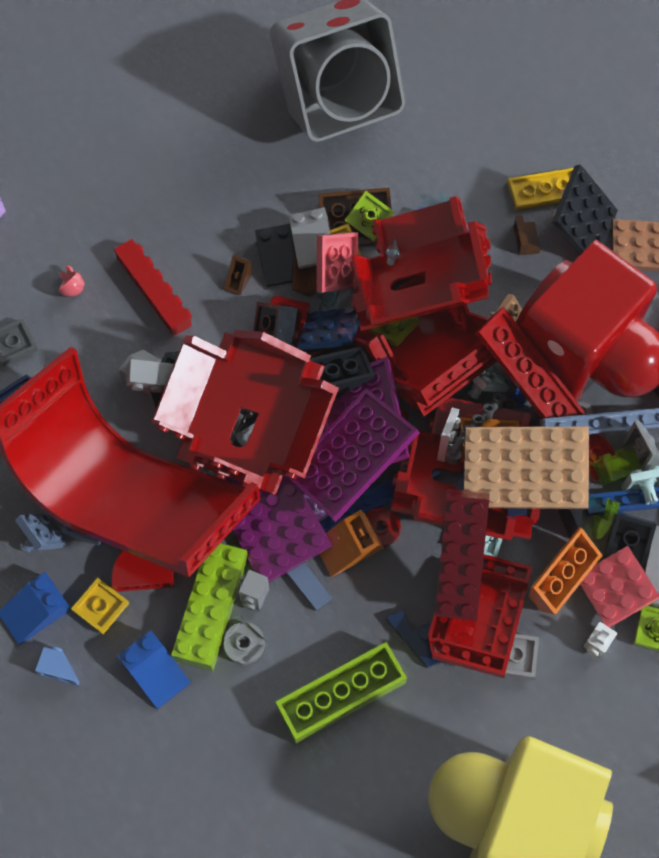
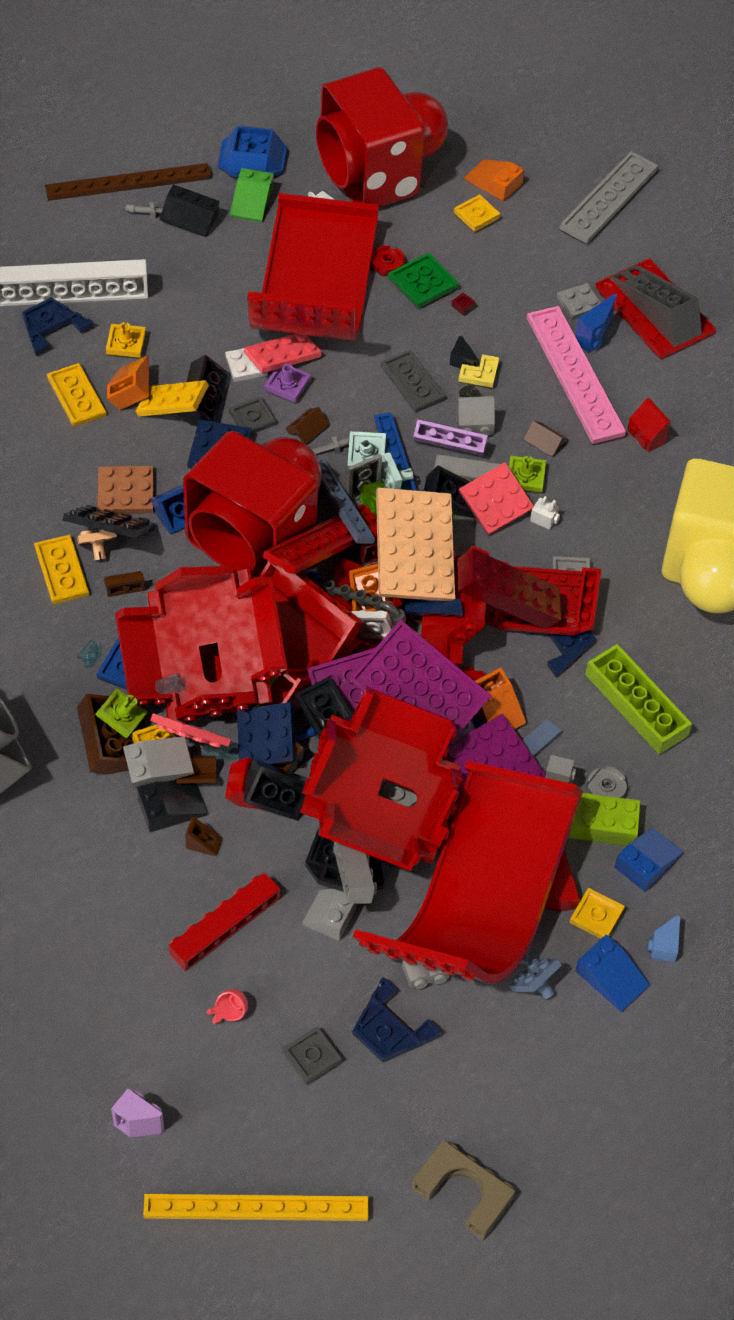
camera: 100 degrees left, 10 degrees down
(564, 573) = (492, 536): orange slope -> none

